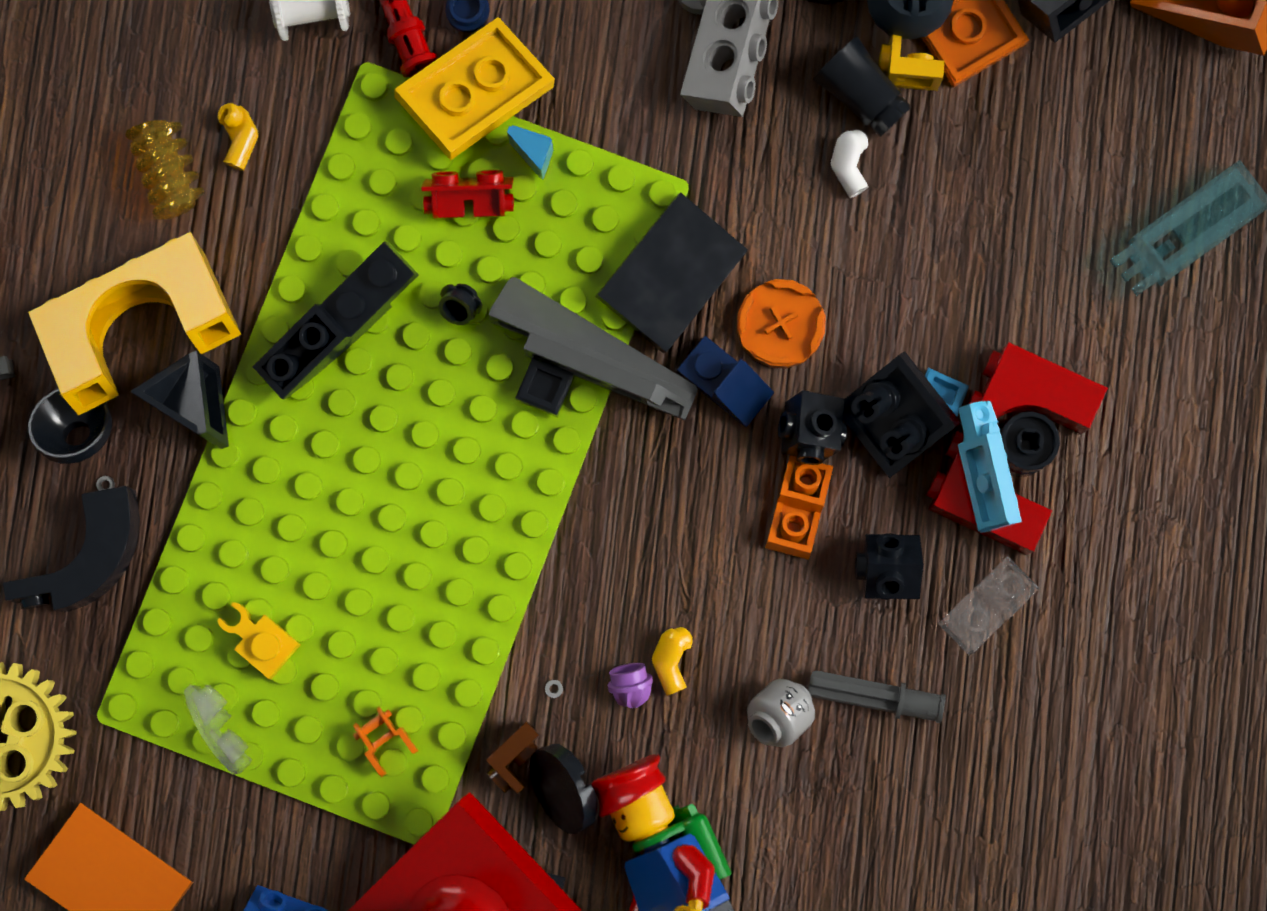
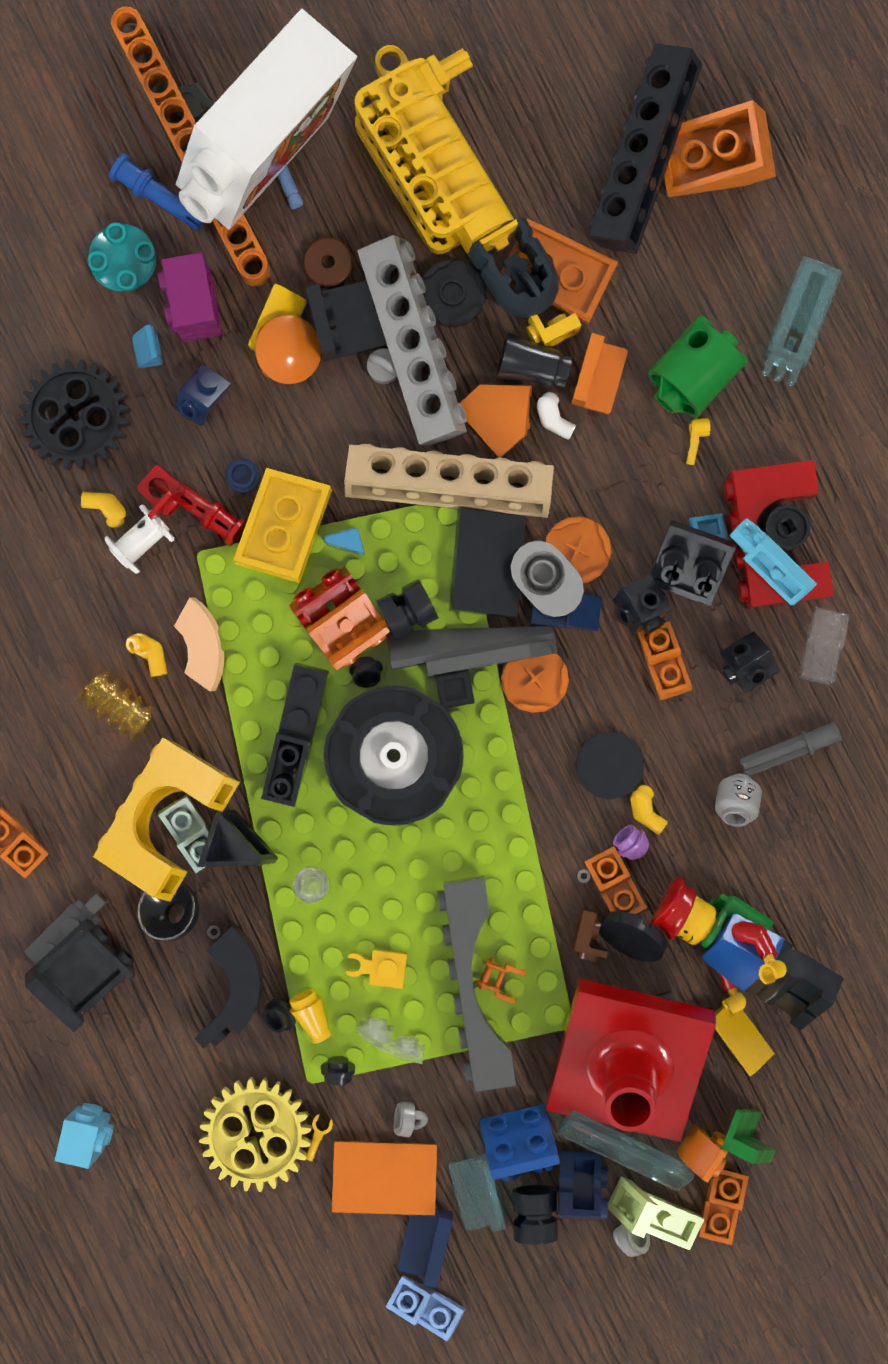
camera: 30 degrees left, 5 degrees up
(66, 785) = (316, 1138): none -> yellow hand
(114, 621) = (278, 1016): none -> black plate
(136, 723) = (338, 1070): none -> black plate
(148, 639) = (310, 1014): none -> yellow cone
(152, 349) = (187, 829): none -> light aqua slope
(175, 827) = (405, 1118): none -> light grey tile
(253, 498) = (316, 880): none -> clear wheel
(305, 156) = (203, 644): none -> light nougat tile
(315, 812) = (489, 1054): none -> dark grey arch
(420, 368) = (360, 764): none -> black piece
(470, 246) = (349, 630): none -> orange bracket
(548, 263) = (407, 609): none -> black wheel
(583, 717) = (615, 882): none -> orange slope
(639, 438) = (535, 682): none -> orange tile
(662, 583) = (609, 765): none -> black tile
(663, 152) = (433, 490): none -> tan brick
(725, 327) = (547, 578): none -> light grey piece
(790, 121) = (499, 414): none -> orange slope
(928, 148) = (599, 375): none -> orange panel
(1001, 275) = (697, 429): none -> yellow hand
(1040, 205) = (696, 368): none -> green cylinder

